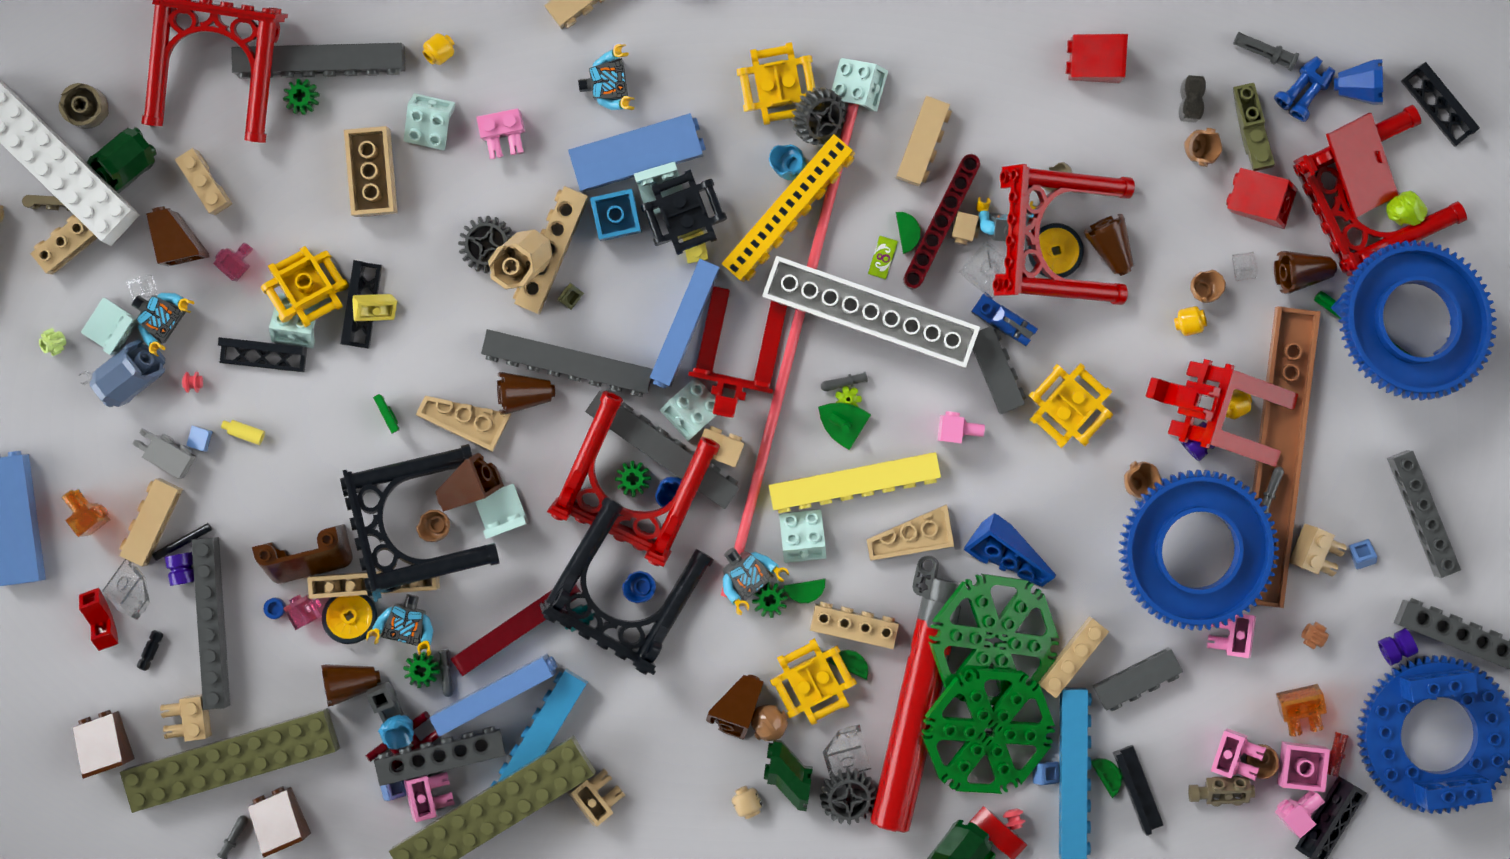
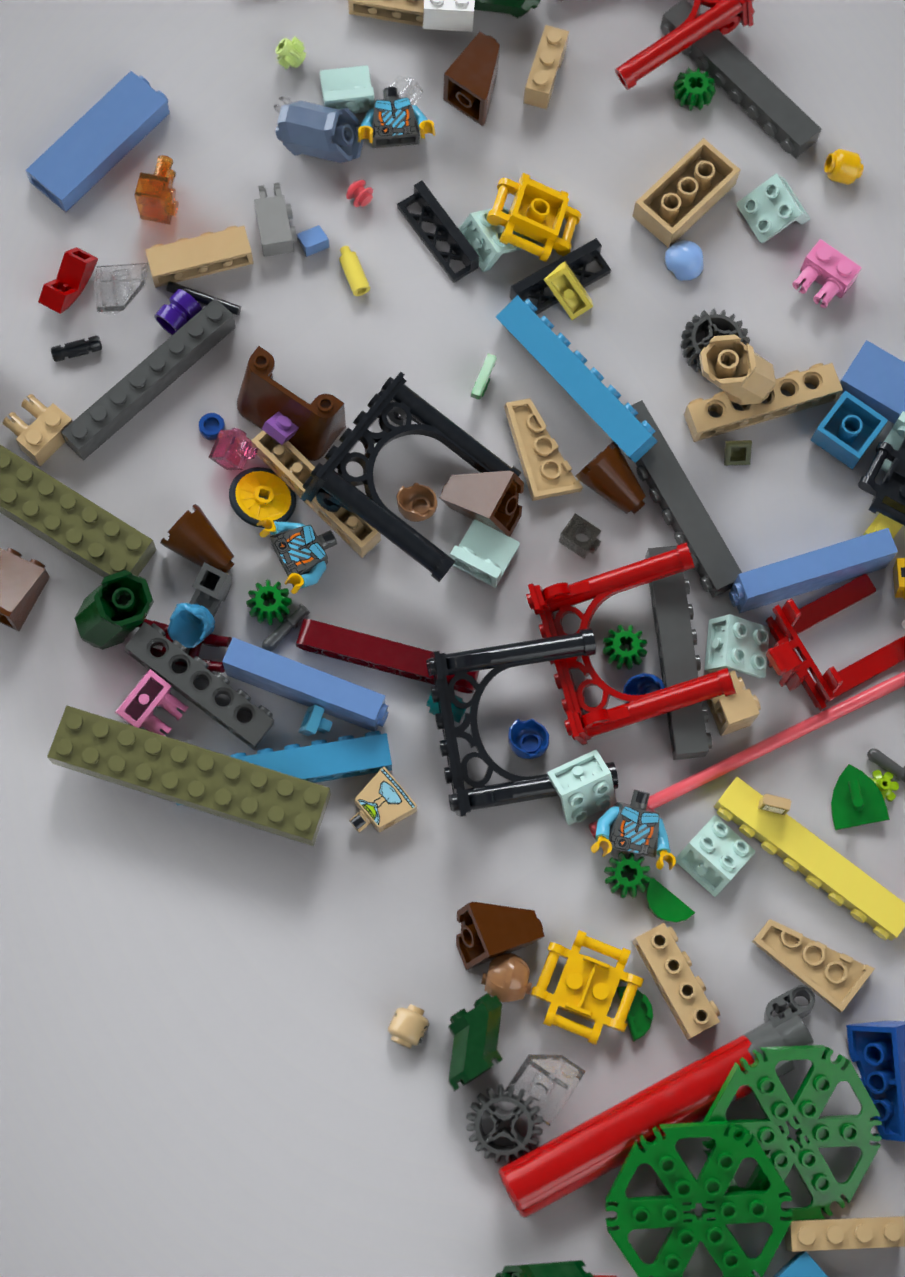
camera: 45 degrees right, 15 degrees down
(233, 262) = (497, 145): clear pink brick -> none
(316, 575) = (280, 428): none -> medium lavender plate
(348, 770) = (114, 610): none -> dark green brick
(393, 791) = (128, 671): medium blue slope -> none
(414, 211) = (684, 260): none -> light blue hair
(437, 358) = (578, 381): none -> dark azure brick
(519, 705) = (314, 722): none -> medium azure tile
(534, 450) = (576, 526): none -> clear smoke brick
(591, 803) = (277, 868): tan brick -> none
(603, 707) = (382, 803): none -> tan torso
(696, 582) = (583, 787): none -> light aqua bracket
(805, 480) = (774, 804): none -> tan tile

